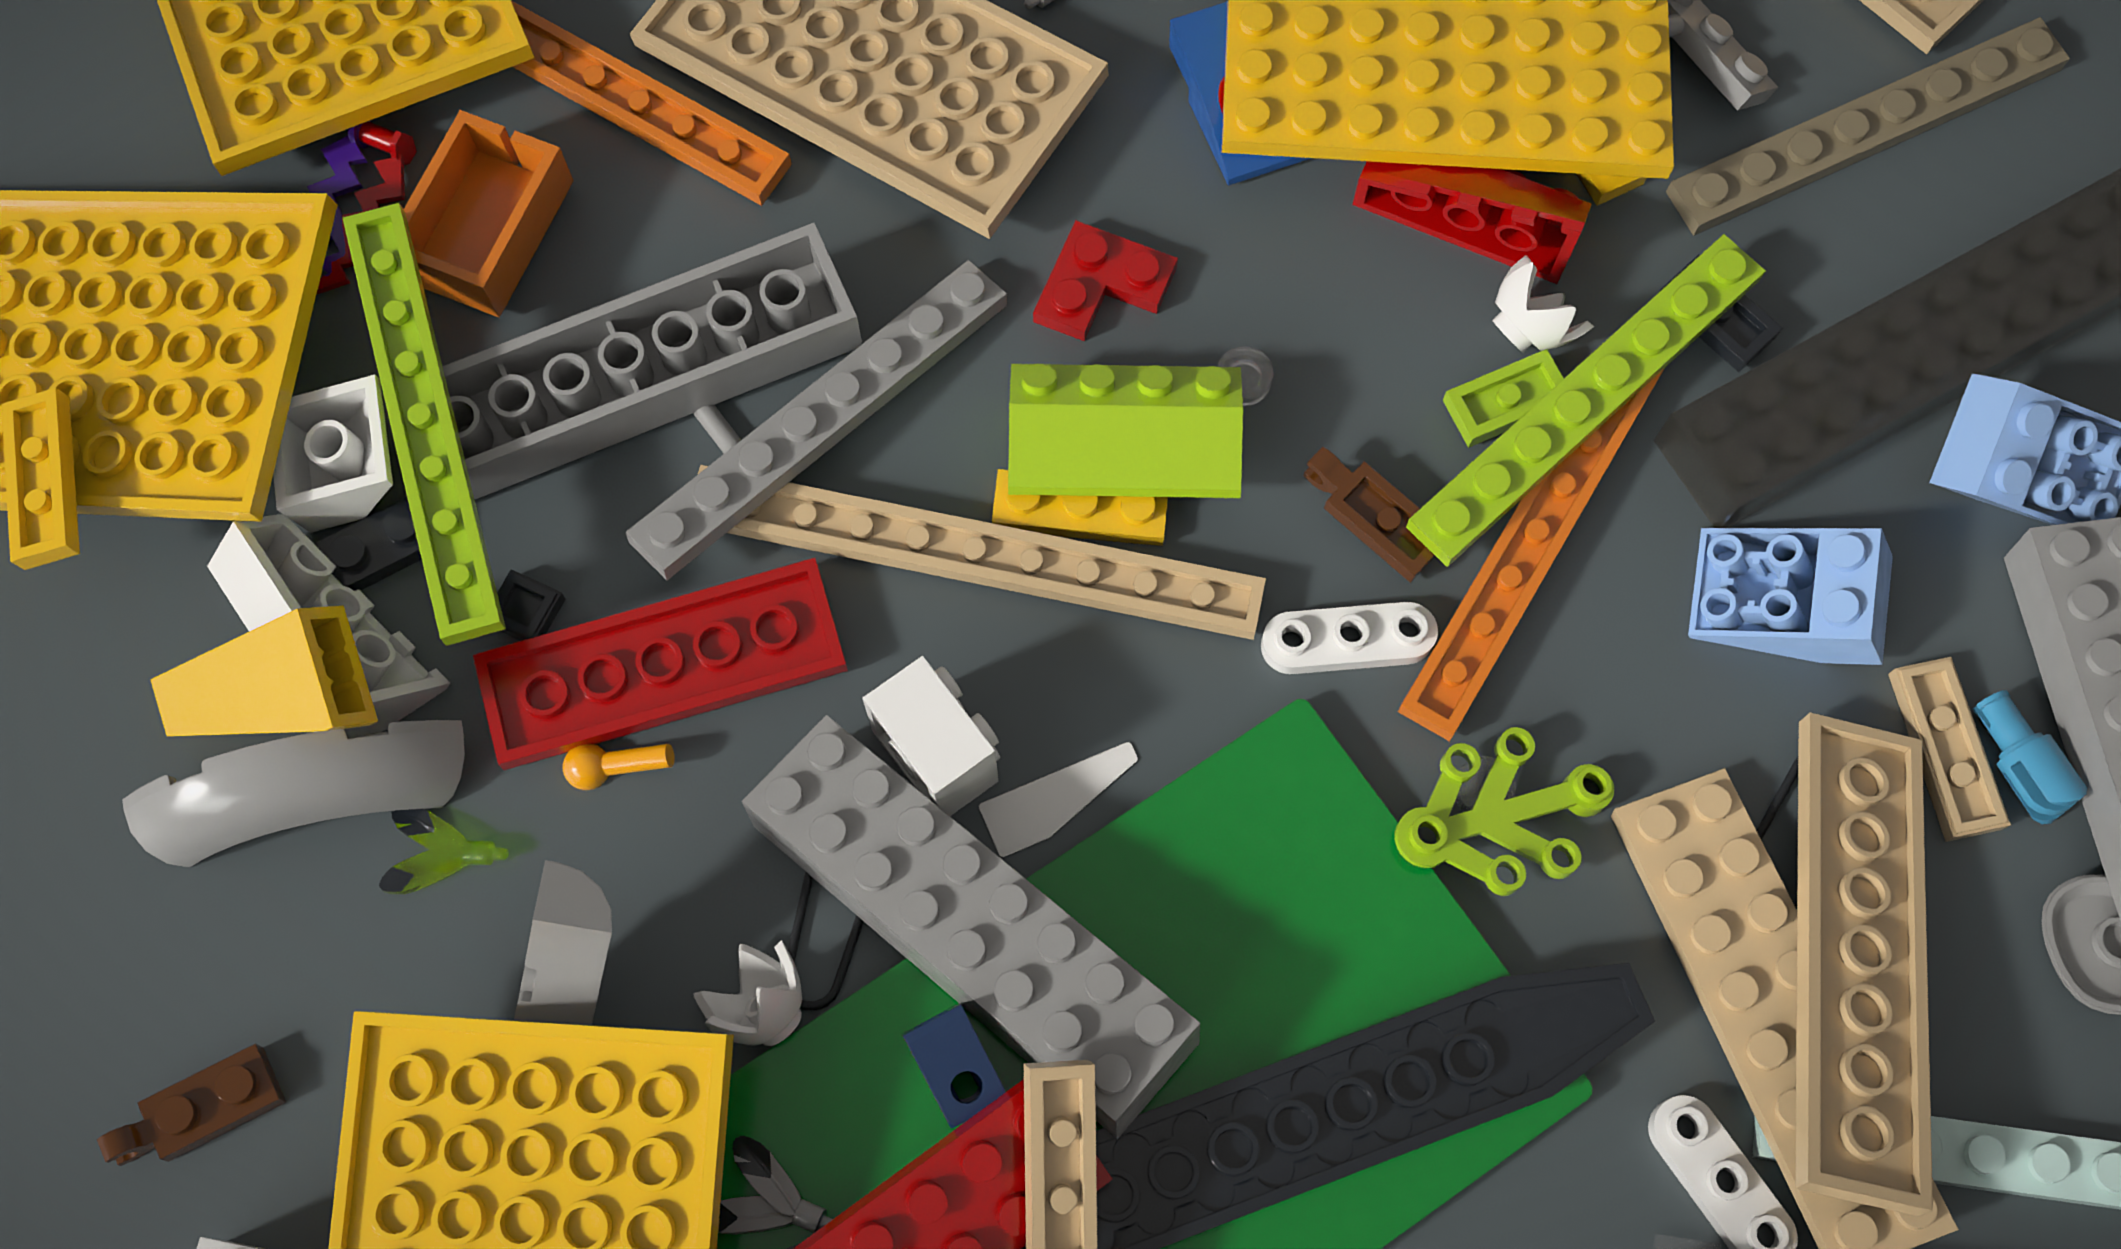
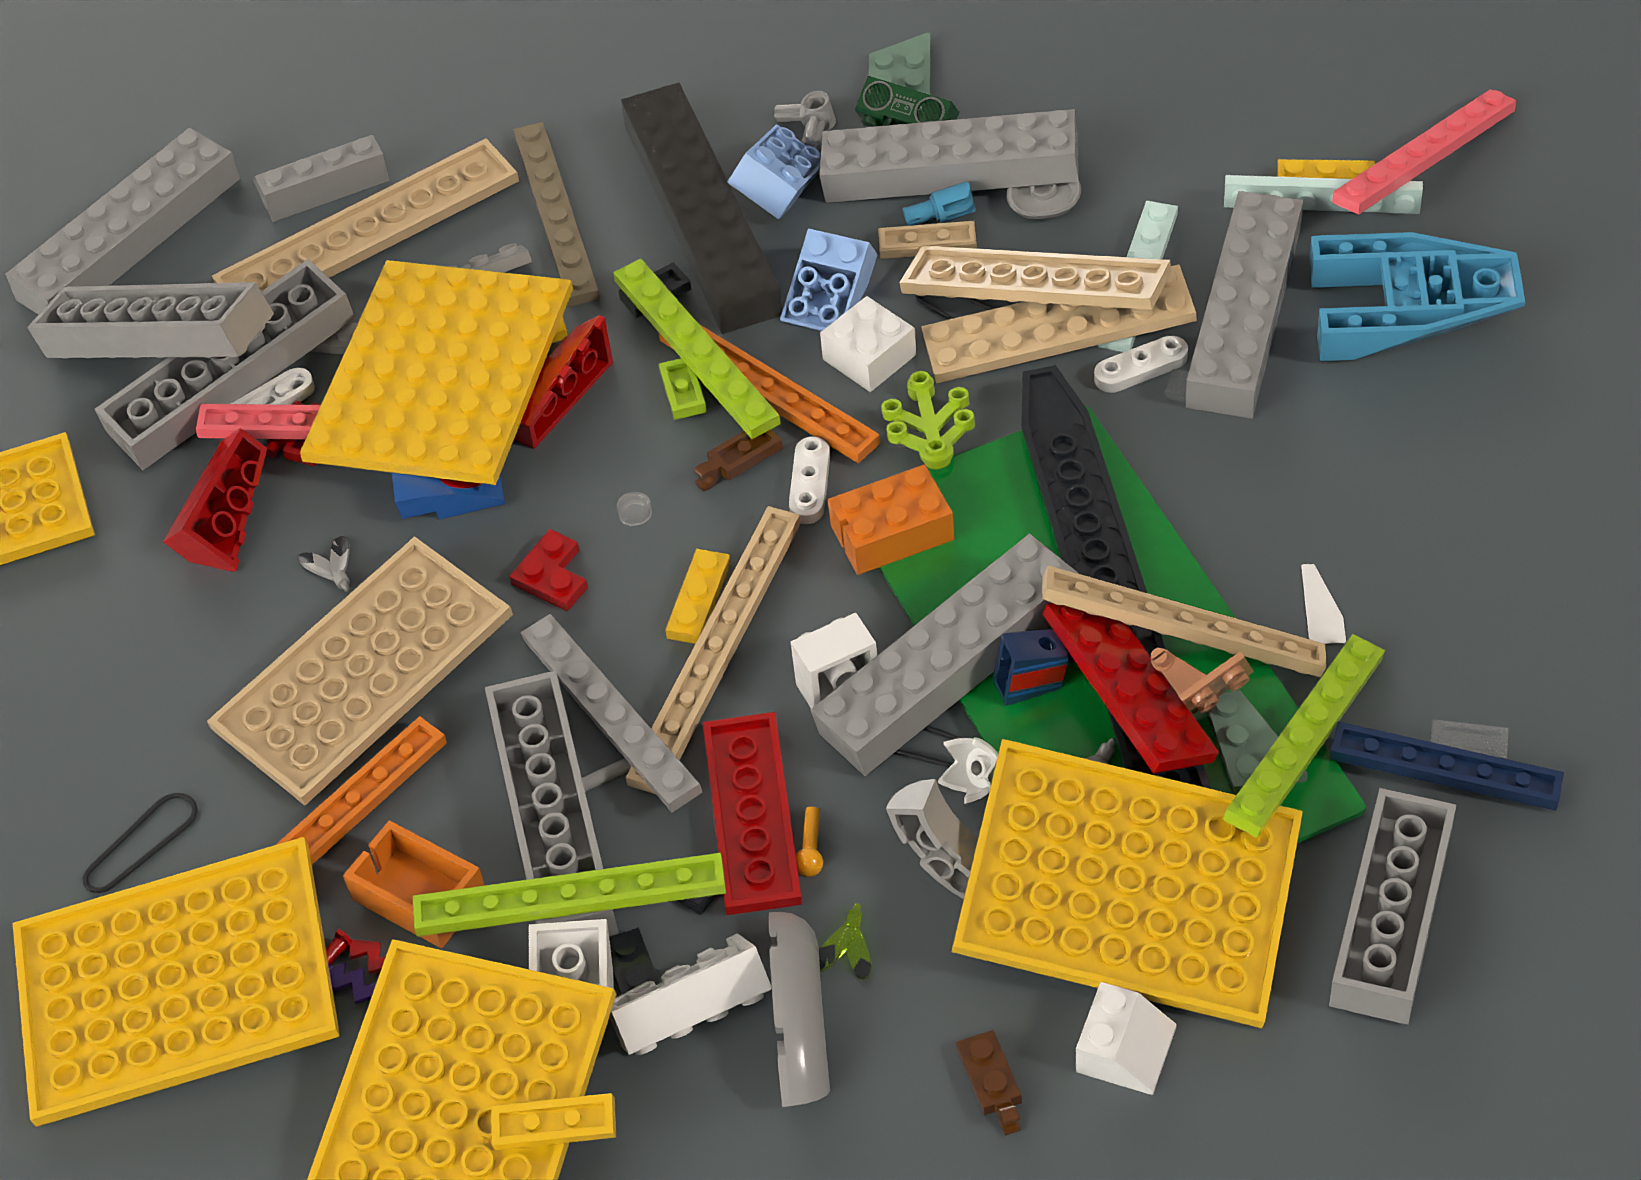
camera: 75 degrees left, 20 degrees down
(274, 679) = (728, 997): yellow slope -> none
(1047, 804) = (874, 620): white sticker -> none
(1125, 431) = (660, 558): lime slope -> none
(1250, 782) = (891, 519): none -> orange piece
(1535, 319) = (633, 369): white piece -> none
(1660, 682) = (868, 343): none -> white brick

